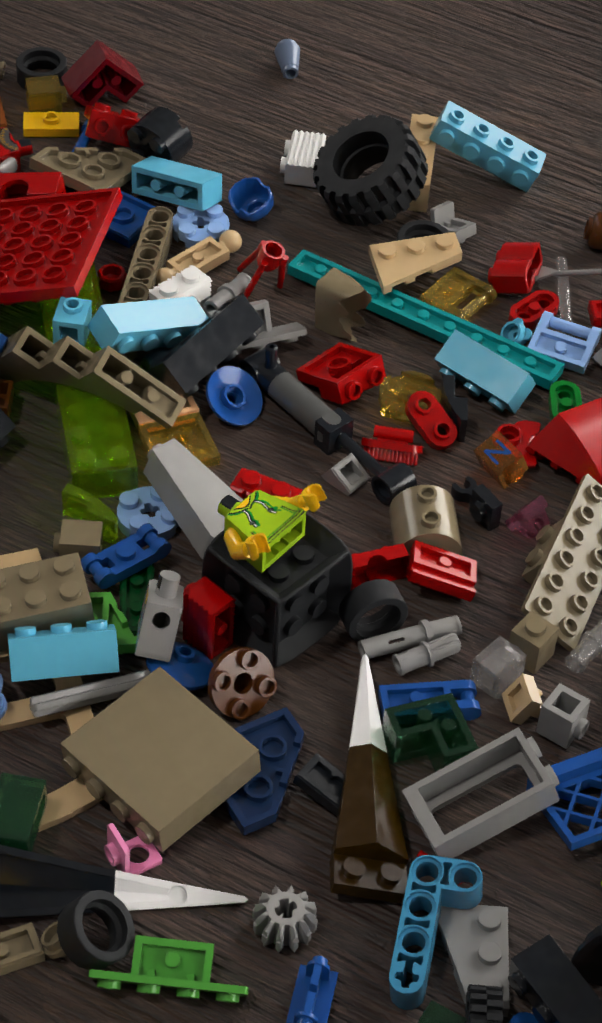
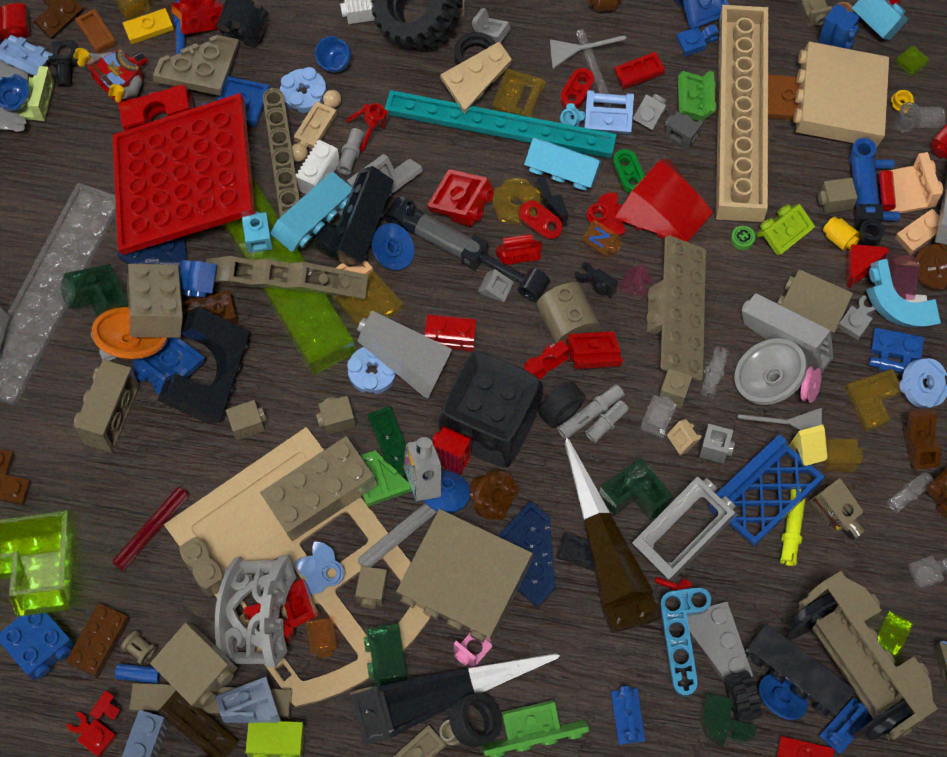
camera: 15 degrees left, 20 degrees up
(33, 738) = (371, 587): none -> dark tan brick
(63, 651) = (366, 515): medium azure brick -> none
(84, 506) = (337, 386): clear neon green slope -> none
(111, 277) = (259, 164): red tile -> none
(126, 557) = (373, 416): blue plate -> none
(177, 183) = (272, 59): medium azure brick -> none
(266, 524) = (478, 386): torso -> none
(284, 918) = (601, 663): light grey gear -> none
(336, 304) = (437, 138): dark tan piece -> none
(400, 694) = (610, 463): blue plate -> none
(516, 267) = (551, 54): red brick -> none

